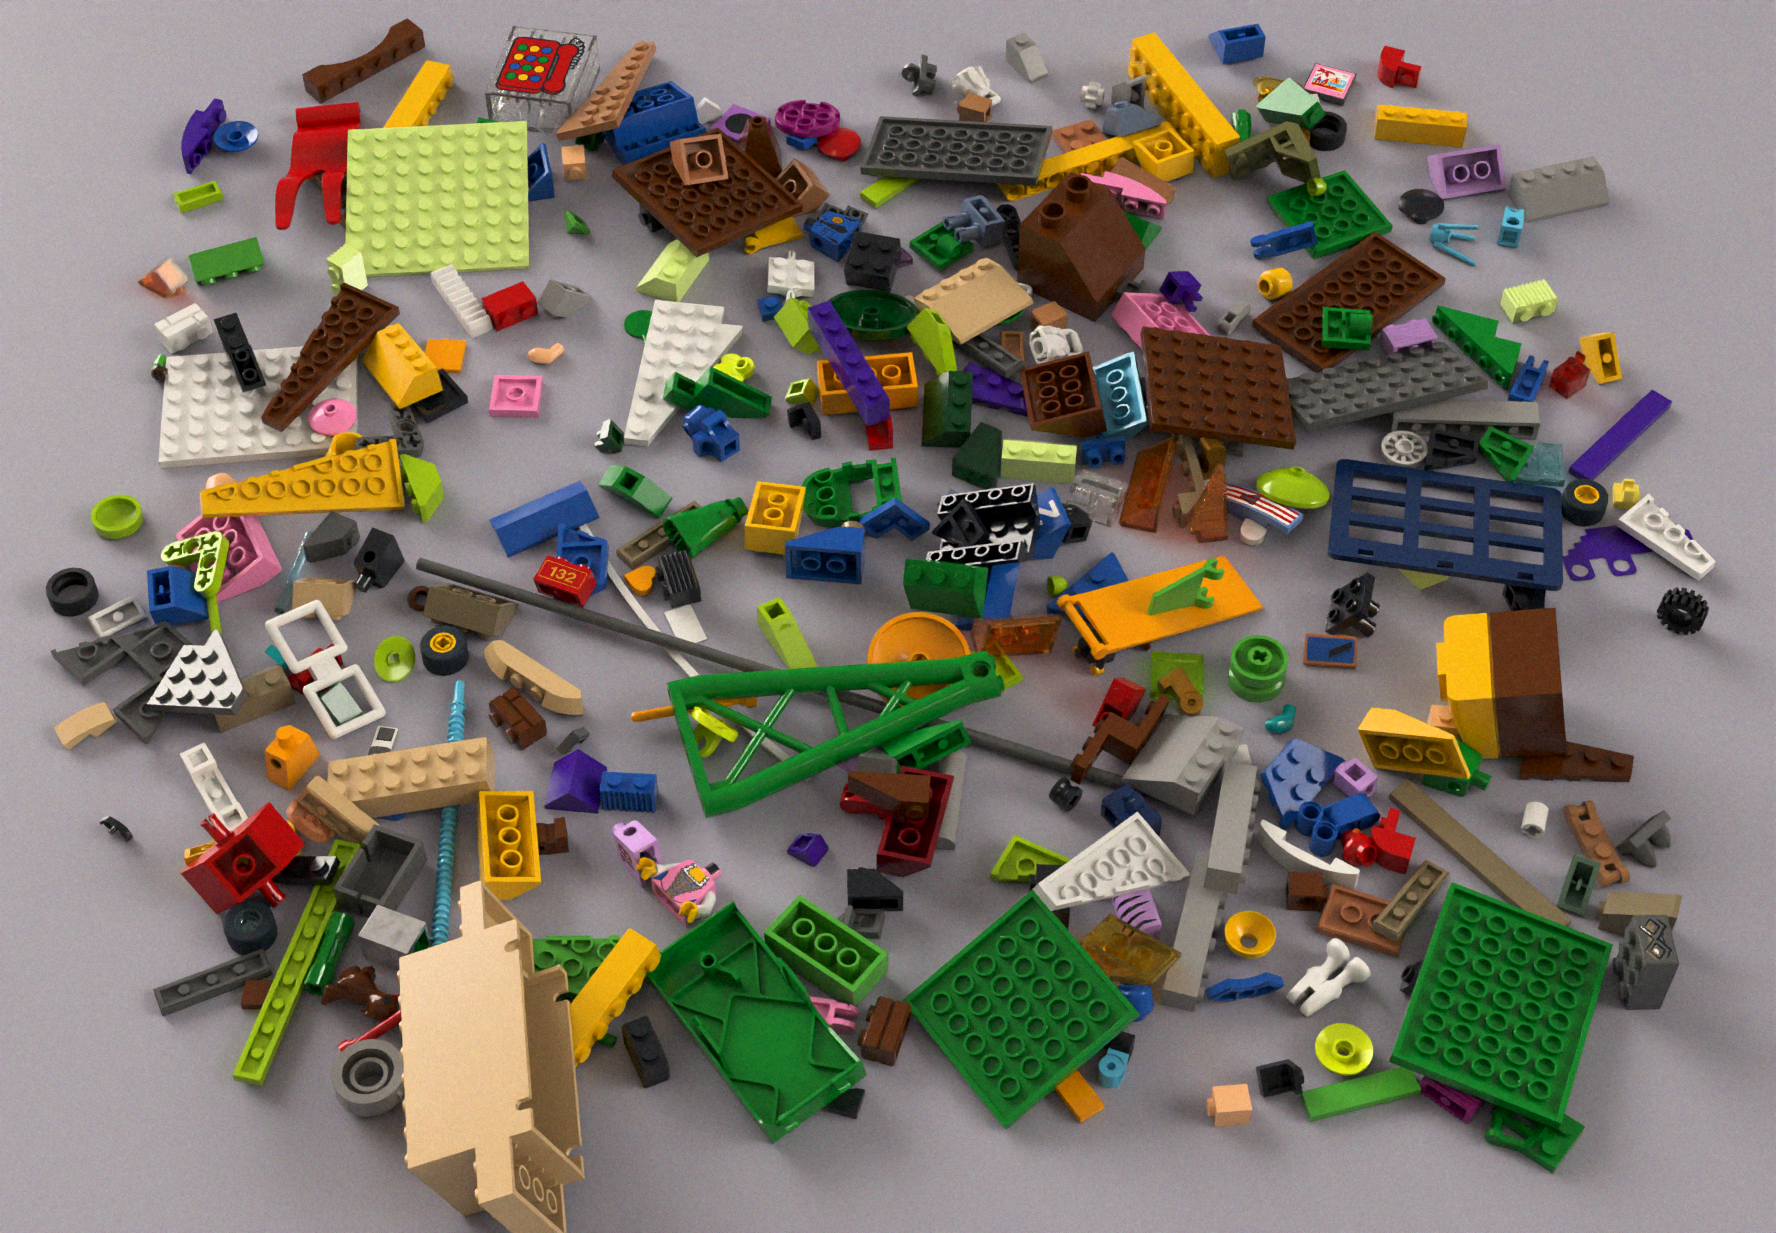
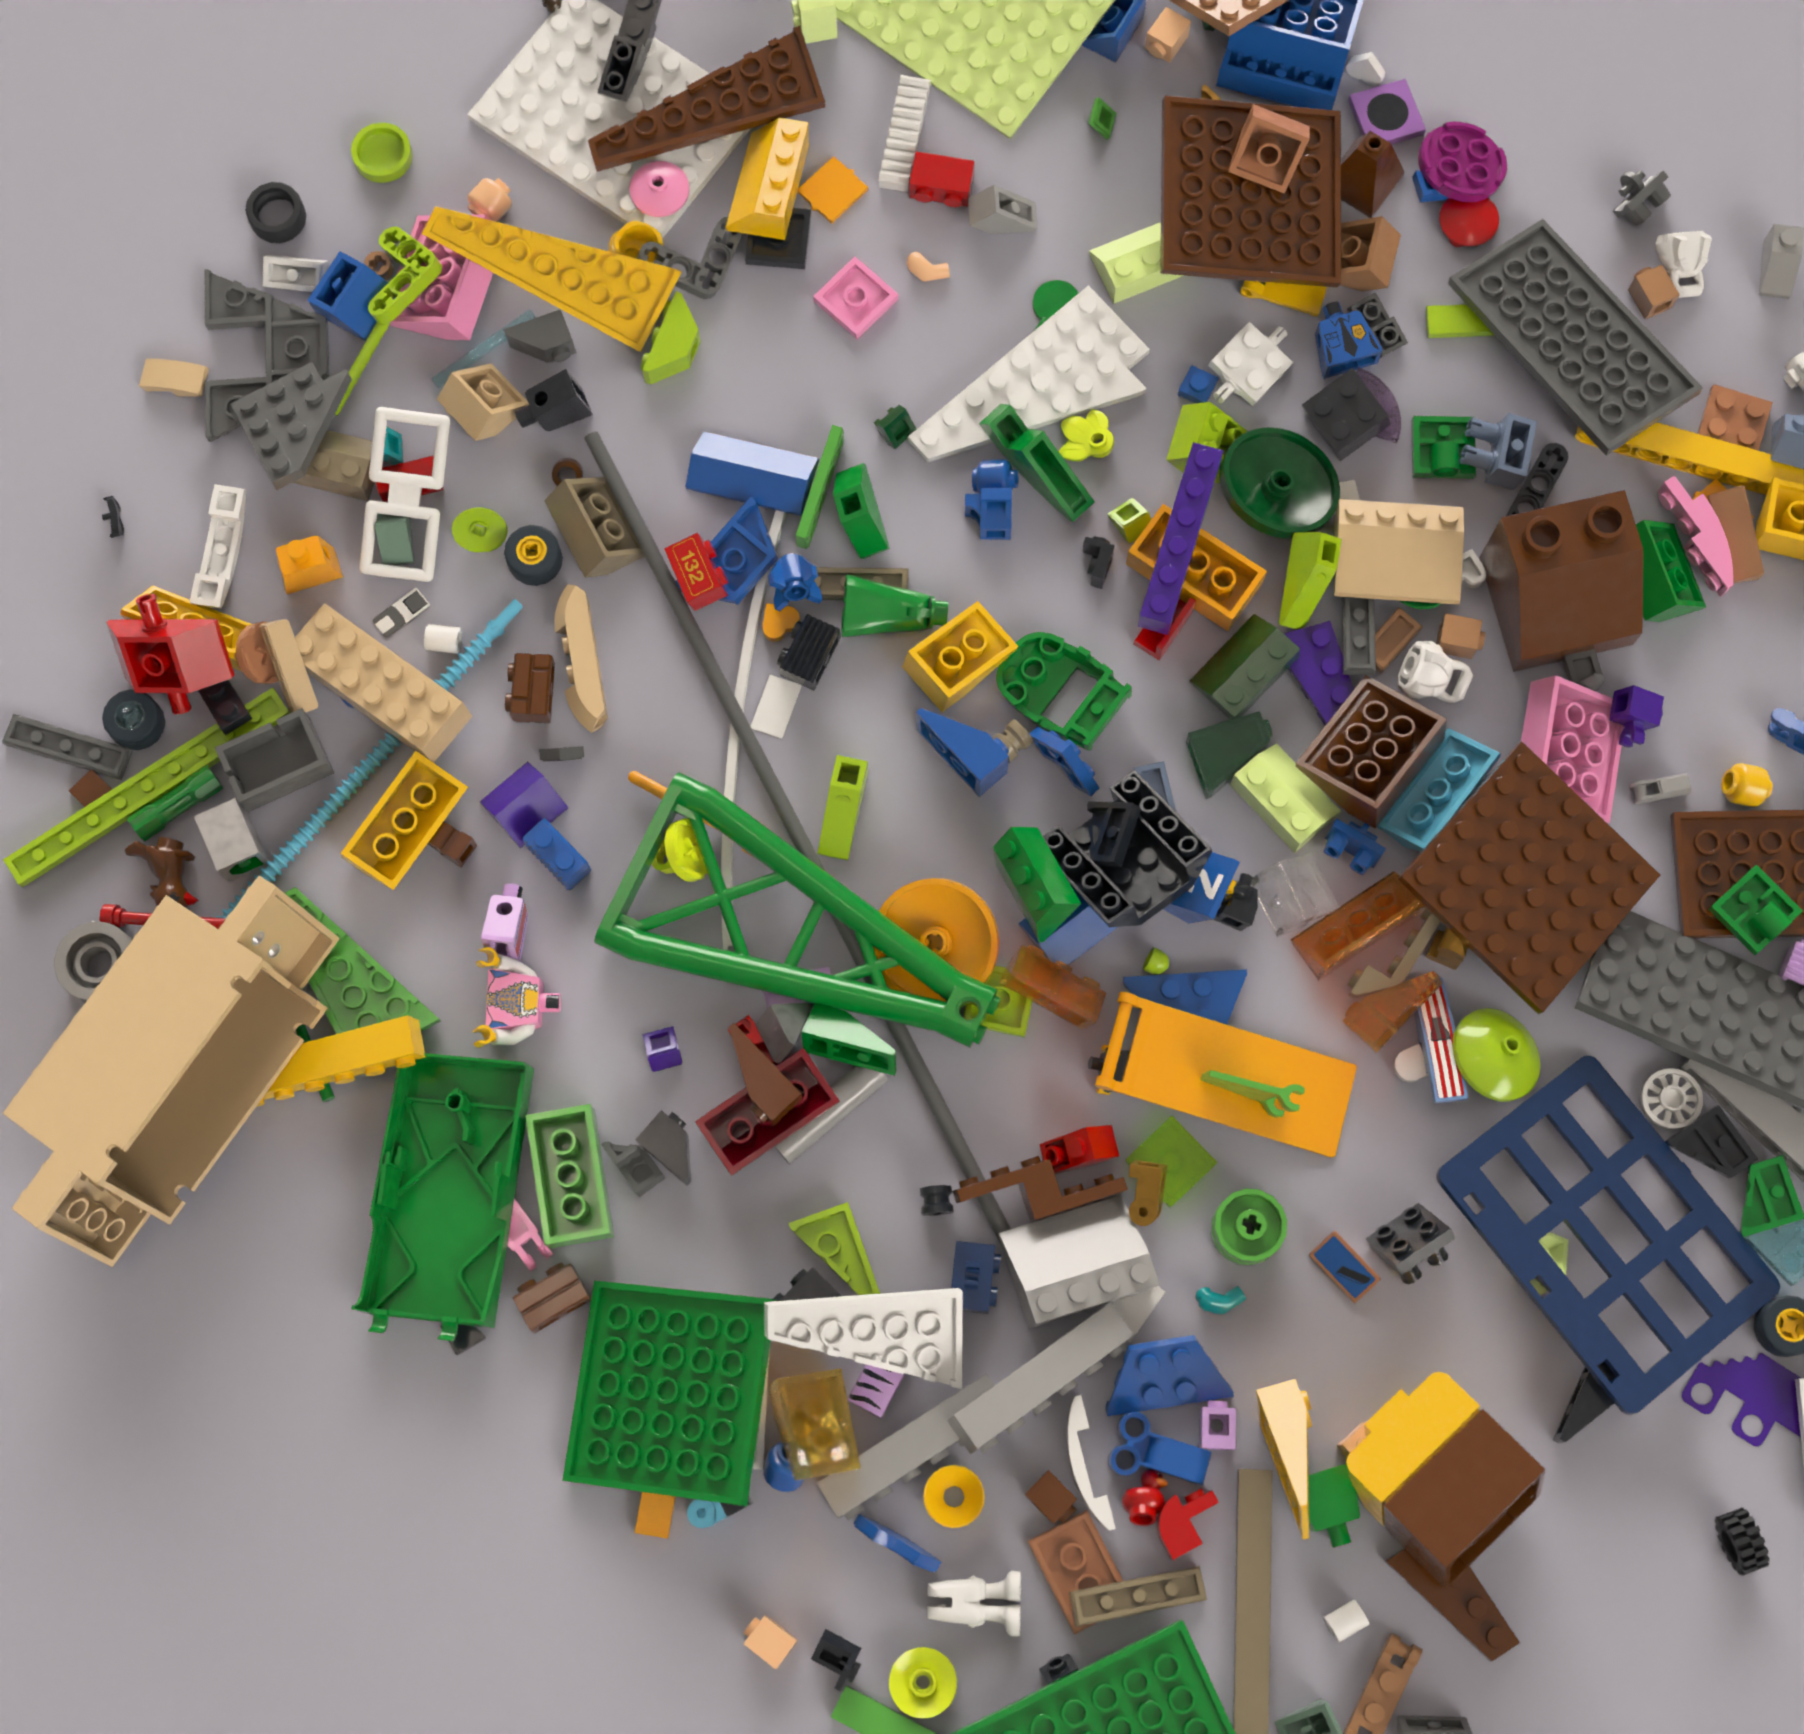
camera: 45 degrees right, 25 degrees up
(428, 734) = (443, 638): none -> white piece
(598, 498) = (820, 487): none -> bright green tile
(631, 543) = (794, 580): none -> blue brick
(645, 1052) = (338, 1137): black brick -> none

